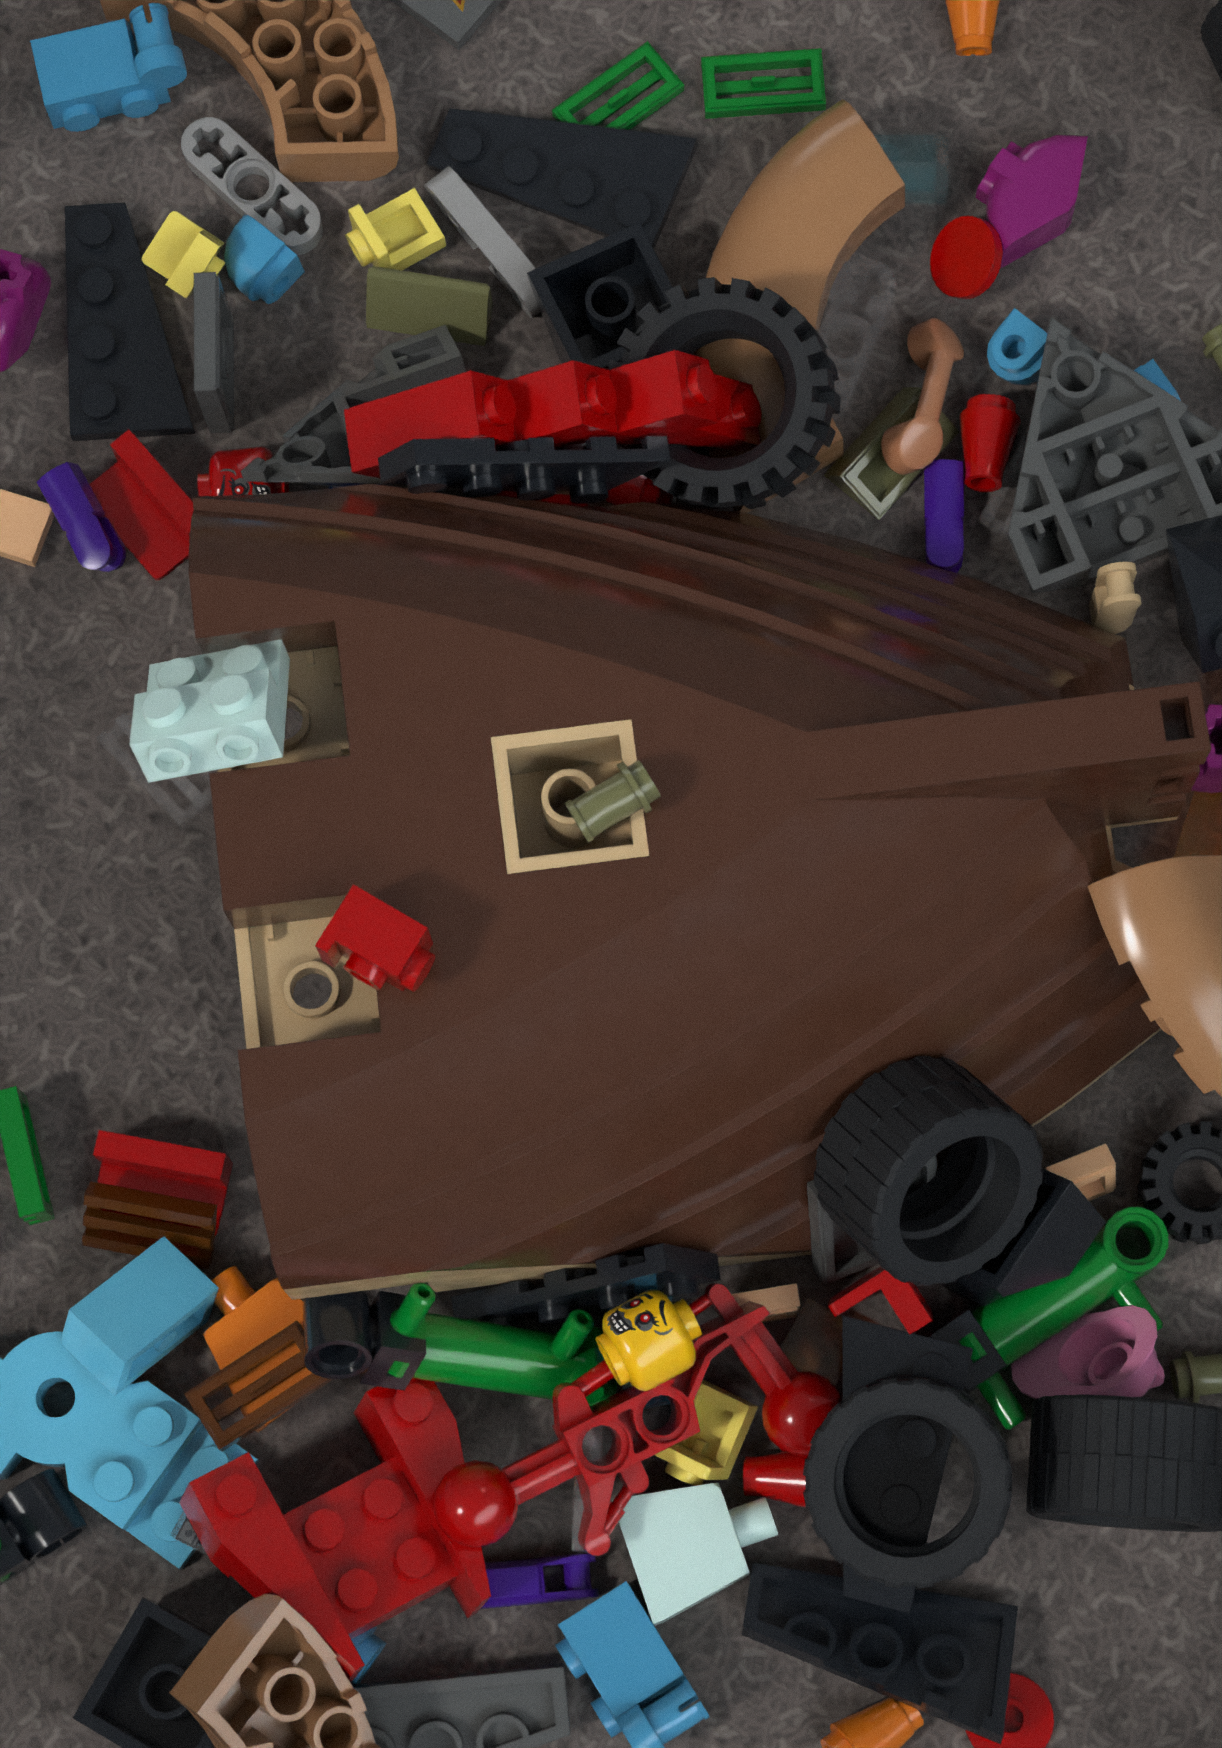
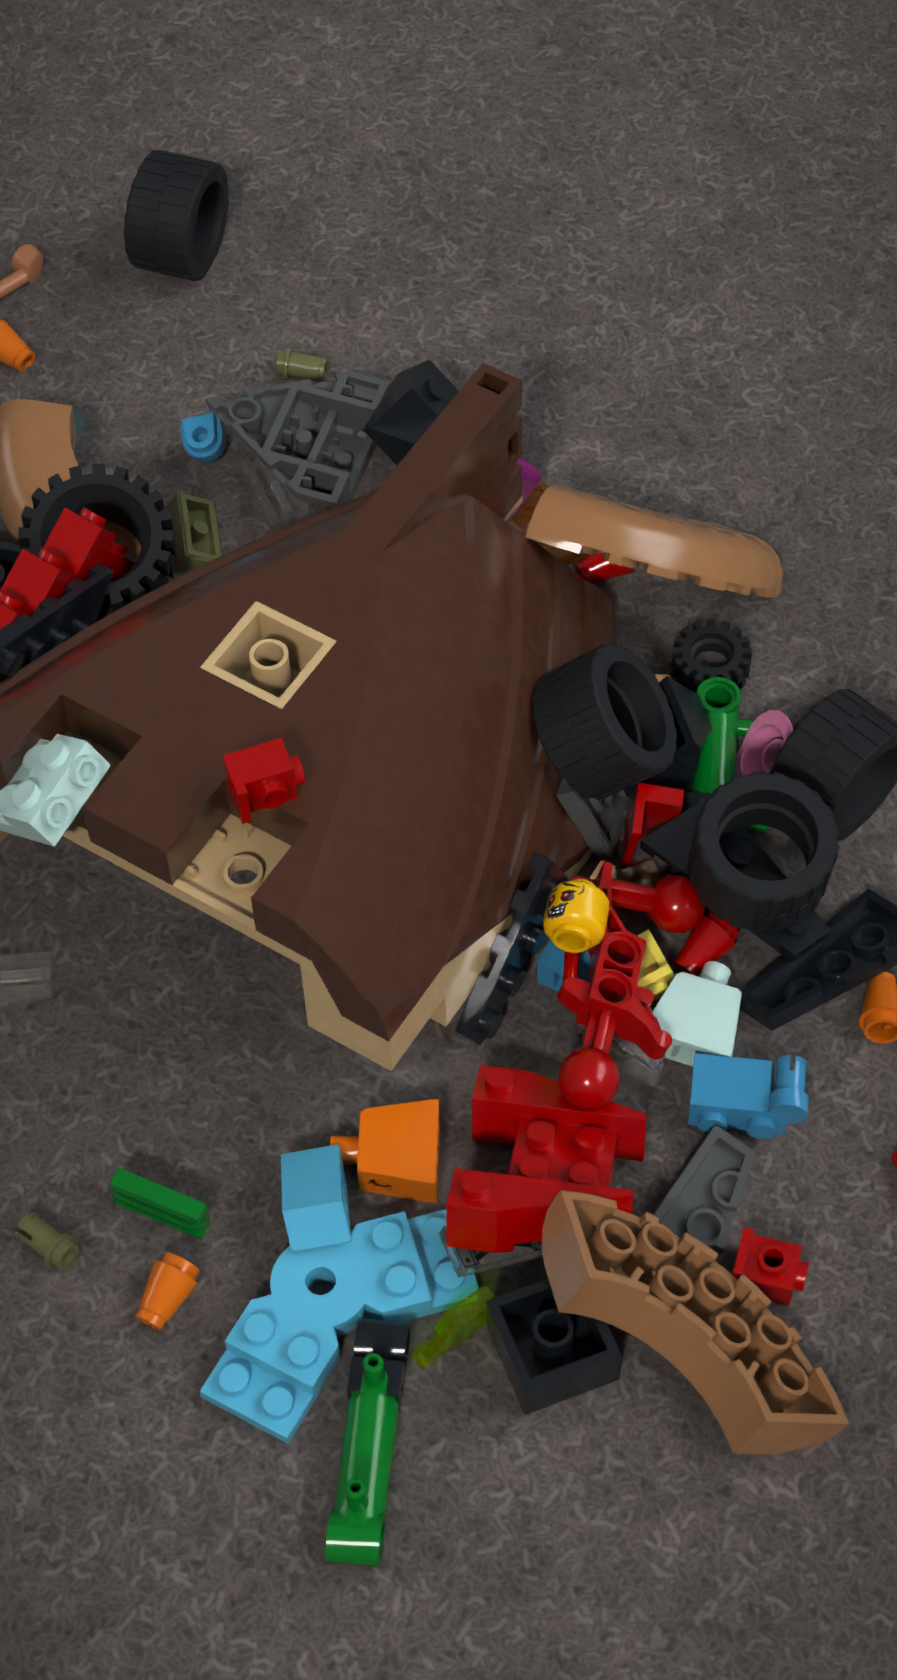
camera: 55 degrees left, 20 degrees down
(121, 1573) = (455, 1327): none -> clear neon green tile
(136, 1234) = (272, 1182): reddish brown tile -> none
(163, 1169) = (242, 1144): red panel -> none
(241, 1366) = (413, 1193): reddish brown tile -> none
(403, 1341) = (460, 1053): green piece -> none
(523, 1580) = (656, 1114): dark purple bar -> none
(613, 800) = (295, 617): olive pin -> none
(919, 440) = (203, 507): nougat bar -> none
(944, 514) = (242, 525): dark purple bar -> none
(966, 257) = (129, 431): red piece -> none
(988, 436) = (230, 483): red cone -> none
(1032, 192) = (128, 384): magenta piece -> none
(1114, 597) = (371, 472): tan bar -> none

